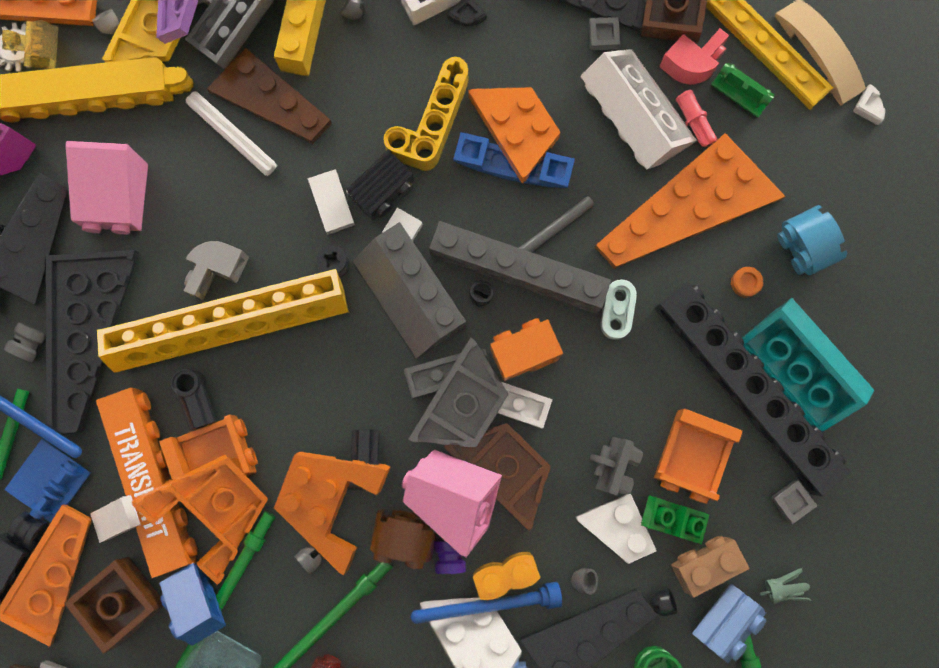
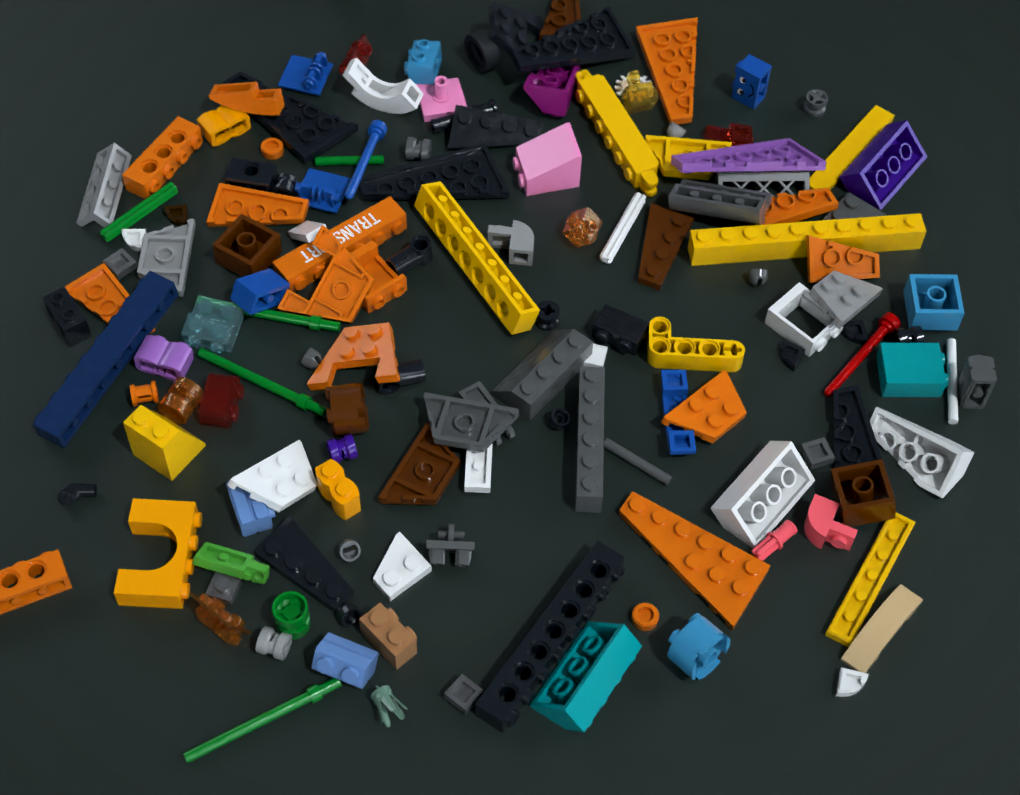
camera: 70 degrees right, 25 degrees down
(221, 180) = (582, 227): none -> clear orange brick
(331, 201) = (591, 305): white tile -> none
(452, 498) = (386, 432): bright pink slope -> none
(525, 350) = (524, 451): orange brick -> none
(547, 595) = (329, 524): blue piece -> none
(618, 310) = (582, 520): light aqua plate -> none
(675, 519) = (420, 605): green slope -> none
(696, 455) = (478, 609): orange panel -> none
(742, 89) = (817, 570): green hinge -> none

